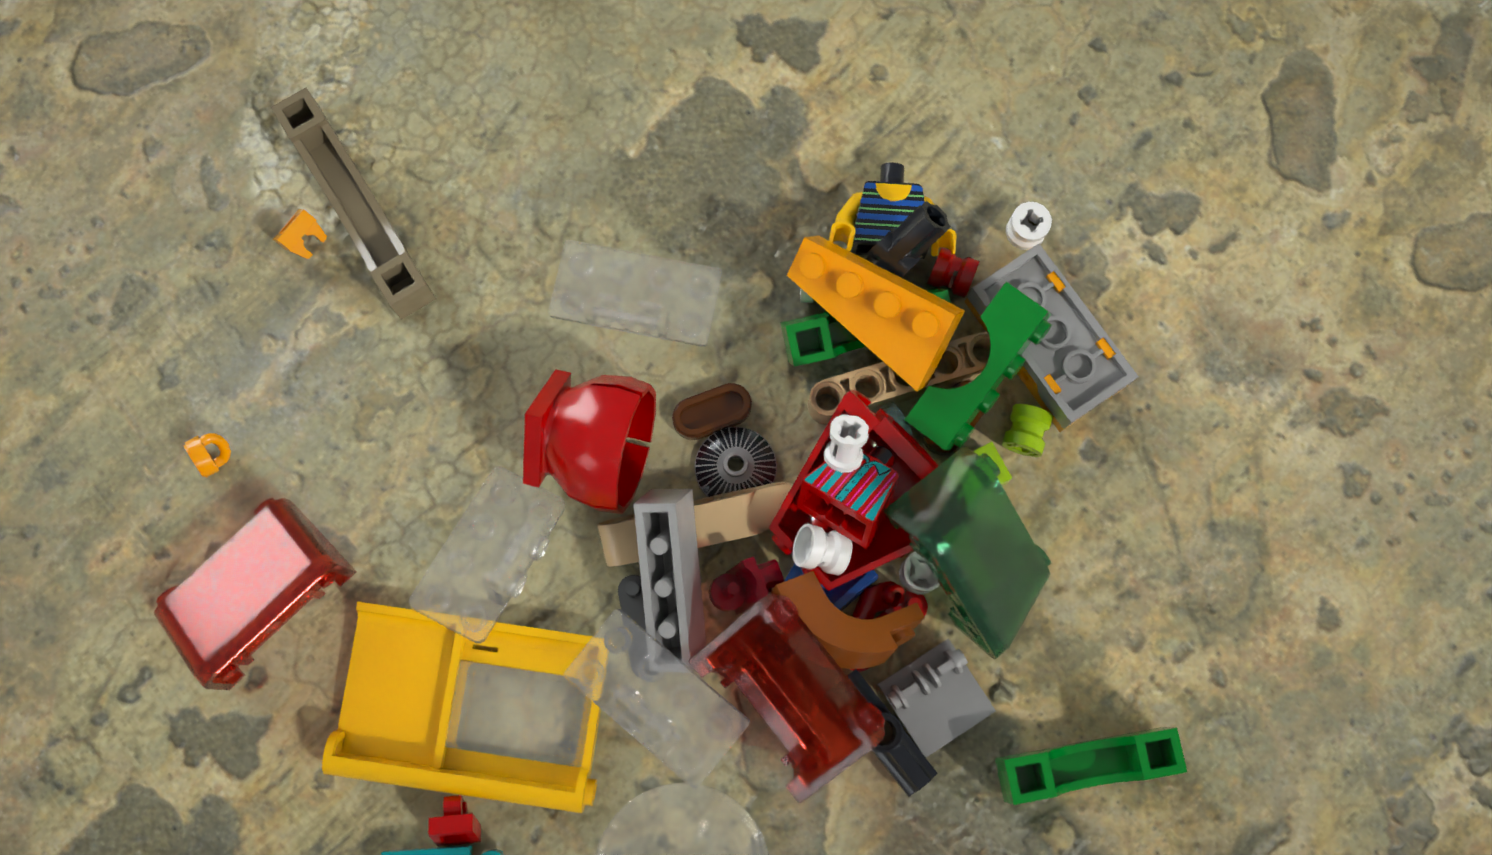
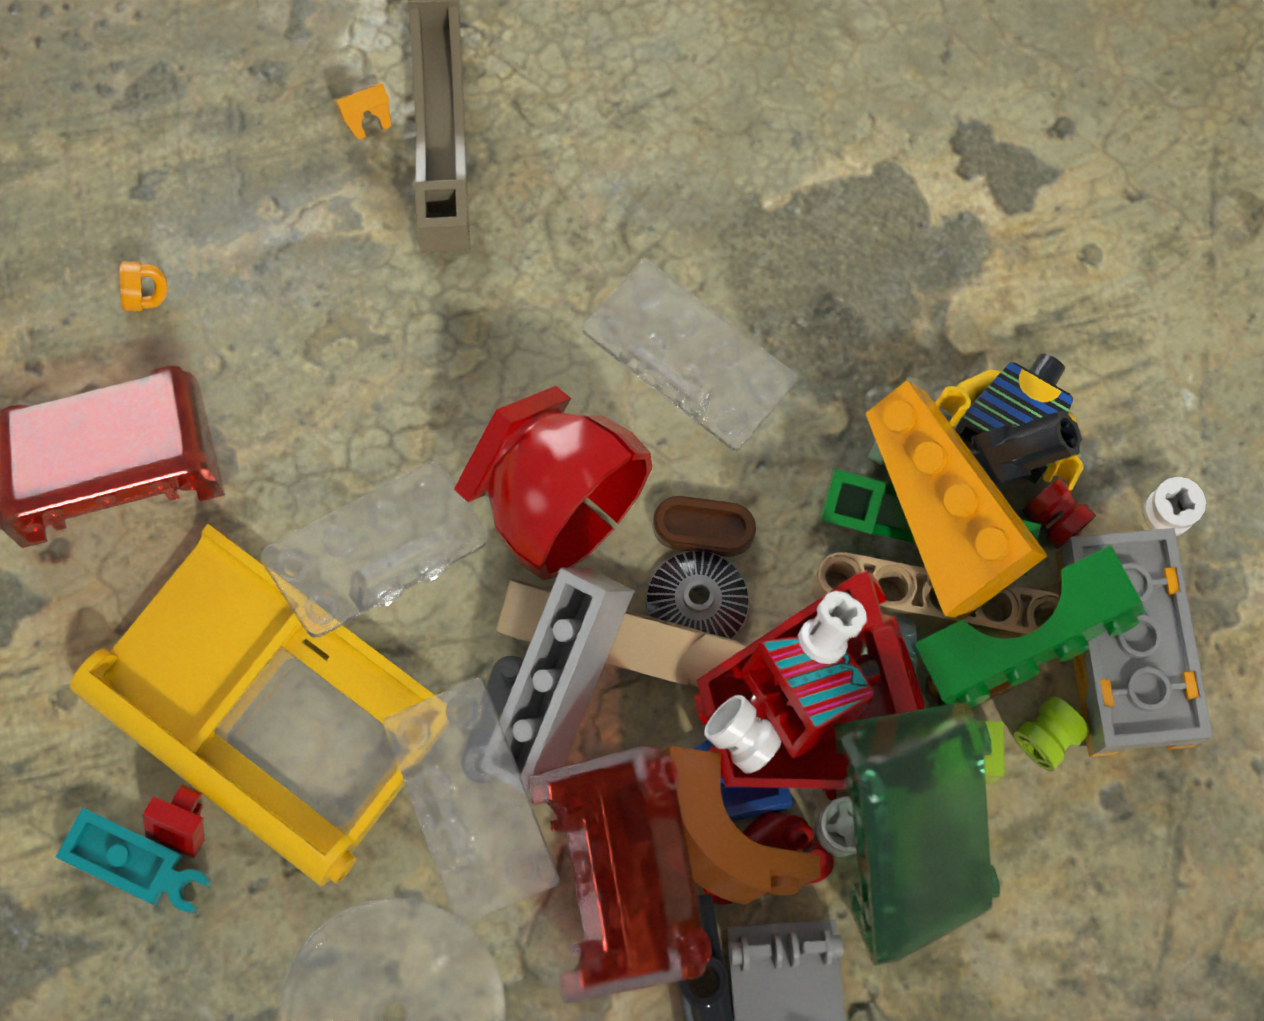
camera: 25 degrees right, 5 degrees down
(744, 585) = (637, 725): dark red hips -> none

